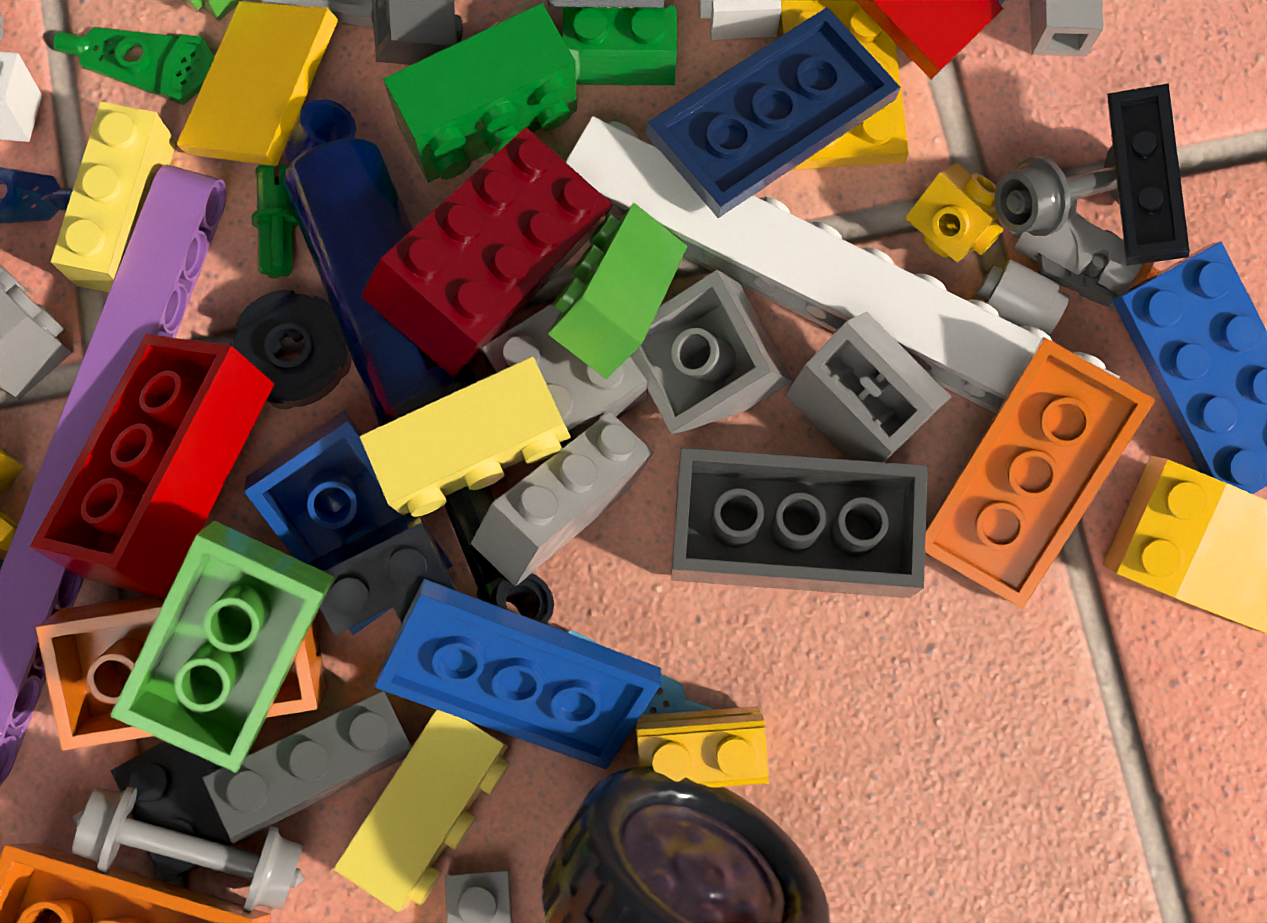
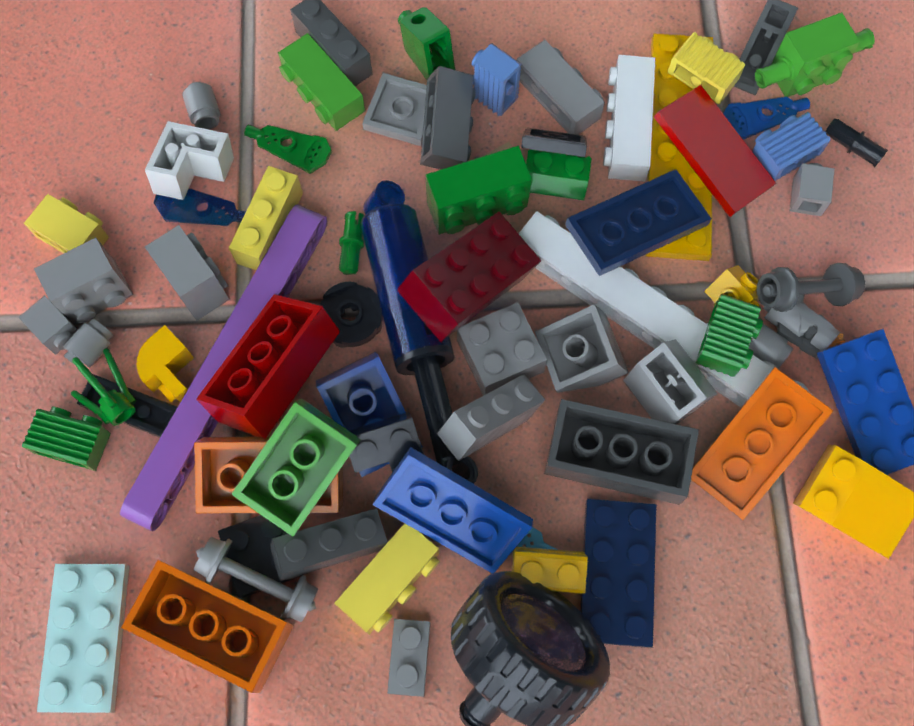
camera: 10 degrees right, 5 degrees down
(257, 82) = (353, 167): yellow tile -> none
(466, 439) = (443, 375): light yellow brick -> none
(616, 289) = (537, 306): bright green brick -> none
(824, 730) = (620, 571): none -> dark blue plate
(959, 292) = (729, 336): none -> green brick
(1148, 175) = (846, 286): black tile -> none

